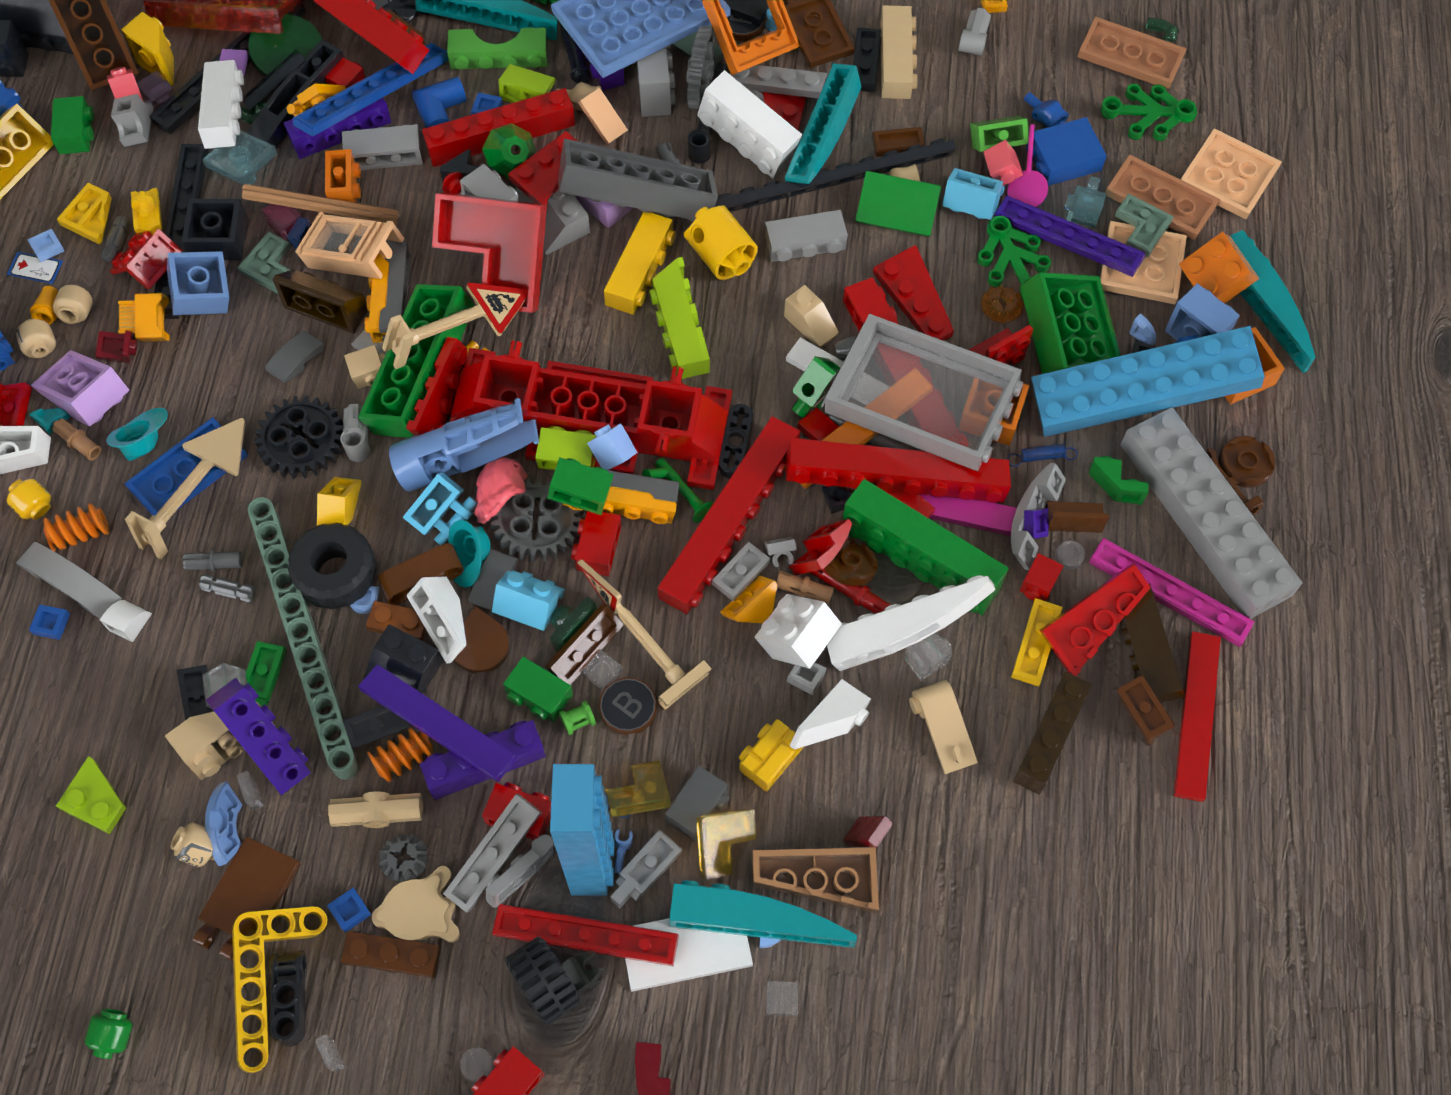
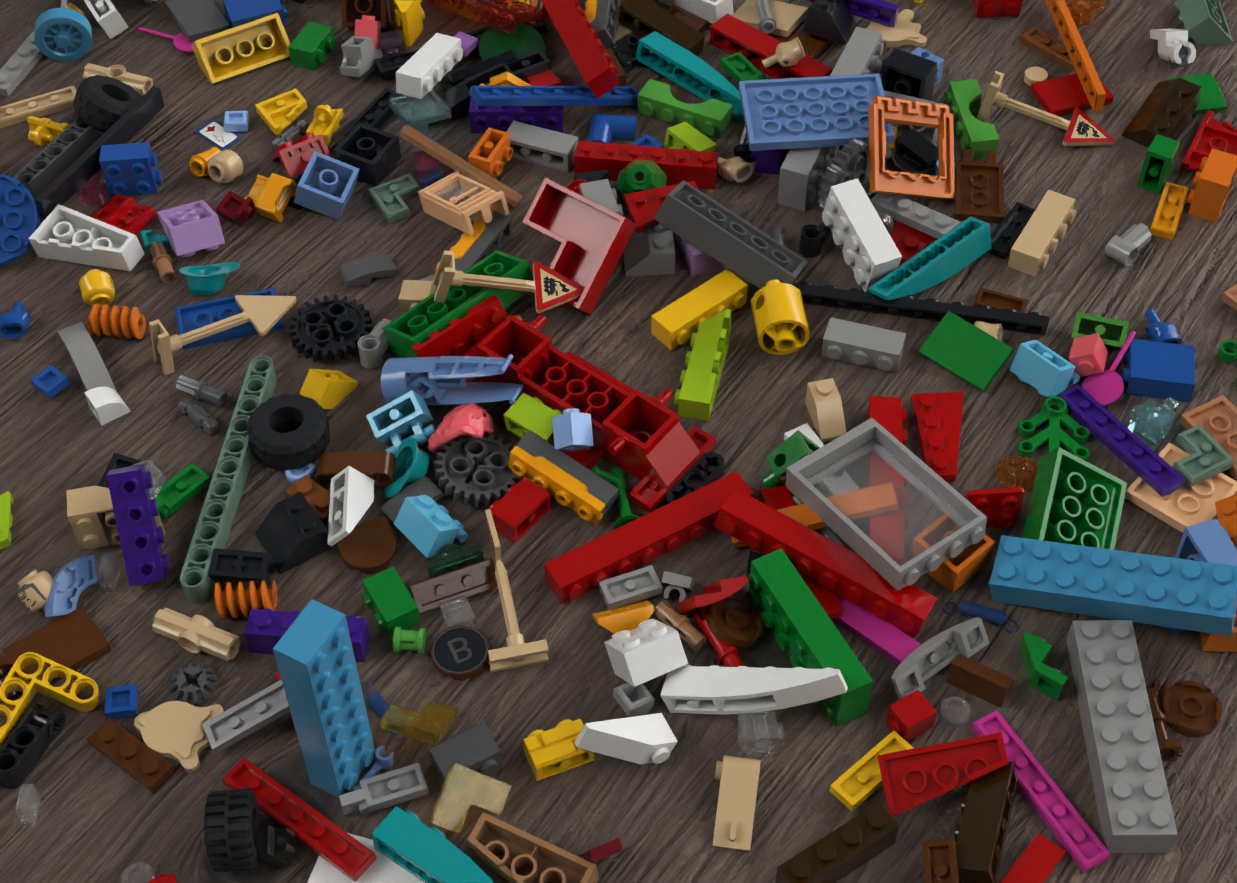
camera: 30 degrees right, 15 degrees down
(34, 337) = (181, 179): tan head -> none
(321, 299) = (413, 233): dark brown slope -> none
(438, 723) = (277, 567): dark purple tile -> none
(520, 871) = (266, 740): light grey hinge -> none
(580, 485) = (524, 448): green brick -> none
(603, 116) = (740, 187): light nougat tile -> none
(1036, 522) = (934, 665): dark purple tile -> none
(1143, 330) = (1146, 543): light blue tile -> none

